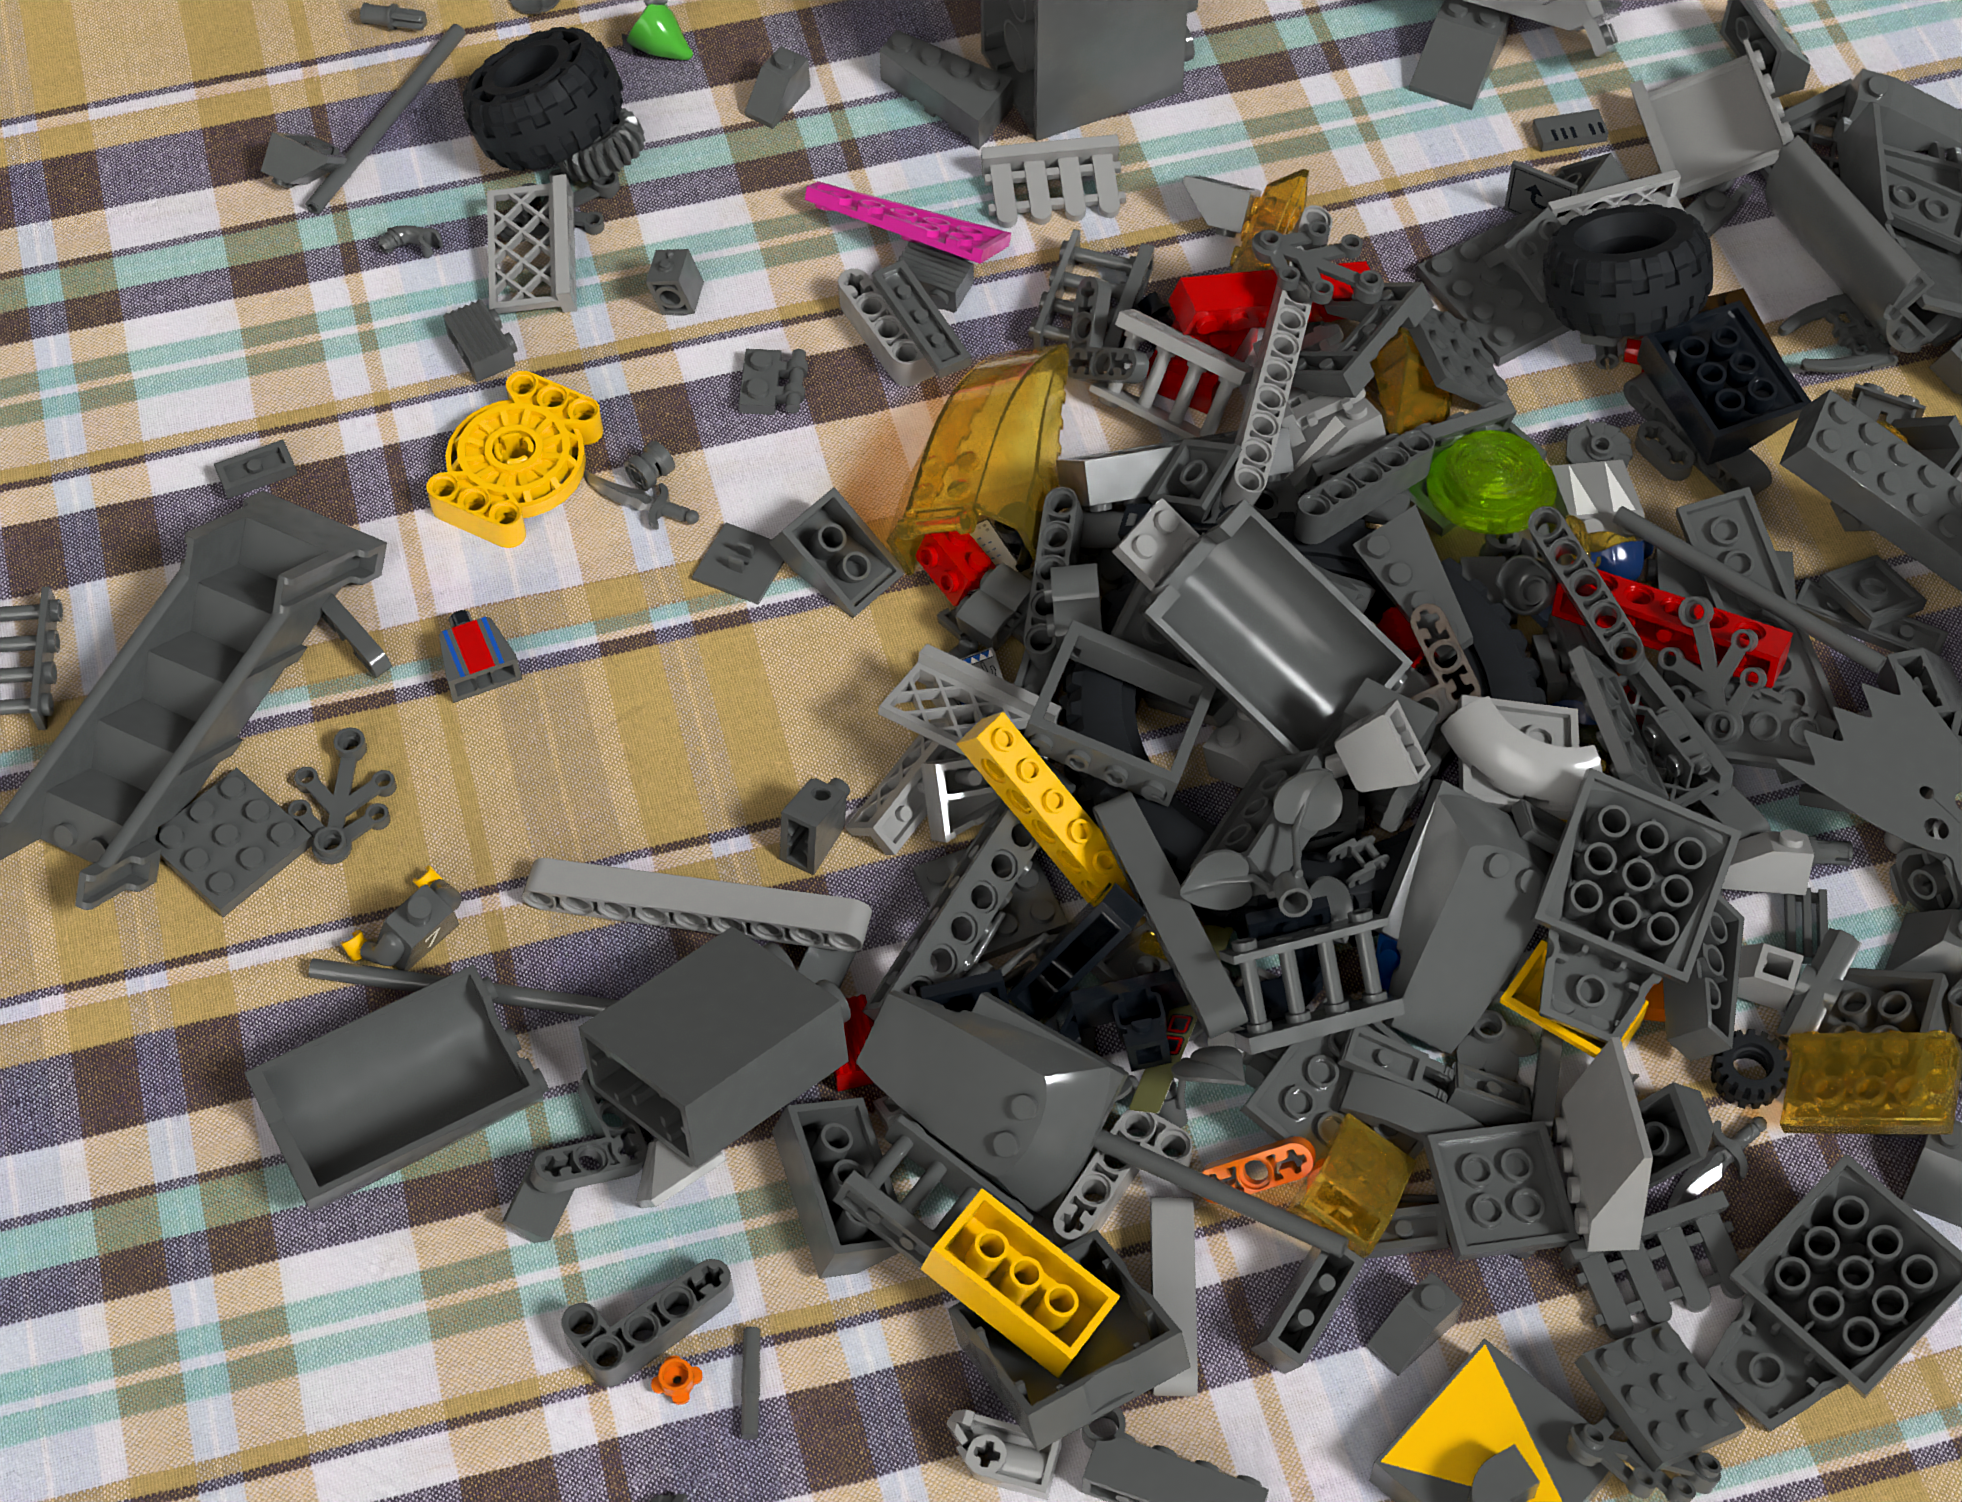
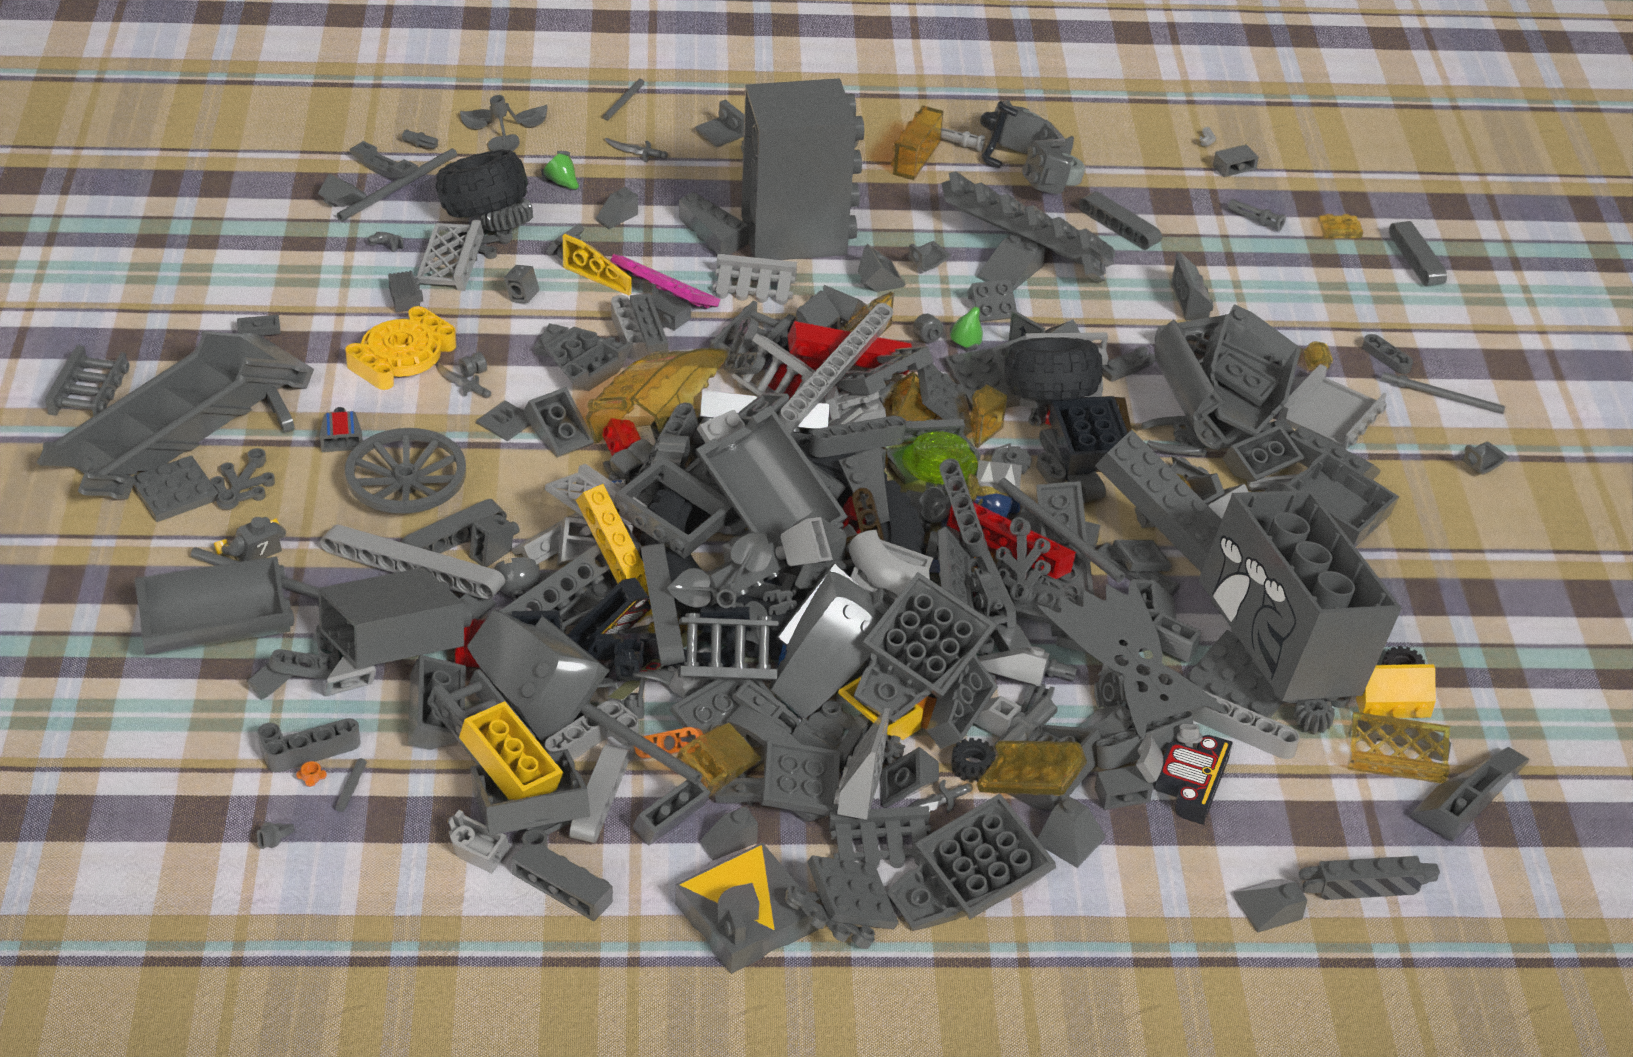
camera: 10 degrees right, 15 degrees down
(345, 83) = (369, 157): none -> dark grey slope
(618, 715) = (405, 476): none -> dark grey wheel
(706, 184) = (557, 244): none -> dark grey plate
(740, 813) = (454, 528): none -> dark grey beam
(773, 211) = (590, 263): none -> yellow wedge
(835, 405) = (586, 357): none -> dark grey wedge
(889, 892) = (519, 576): none -> dark grey cylinder
(1191, 244) = (819, 312): none -> dark grey slope
(1251, 119) = (878, 271): none -> dark grey slope
(1275, 248) = (851, 316): dark grey plant -> none
(1322, 69) = (928, 255): none -> dark grey piece
(1371, 215) = (928, 328): none -> dark grey head
(1438, 207) = (968, 330): none -> bright green hat
(1457, 135) = (993, 299): none -> dark grey bracket
(1532, 371) = (987, 414): none -> clear yellow slope
(1570, 130) = (1061, 311): dark grey tile -> none
(1714, 123) = (1139, 320): light grey panel -> none

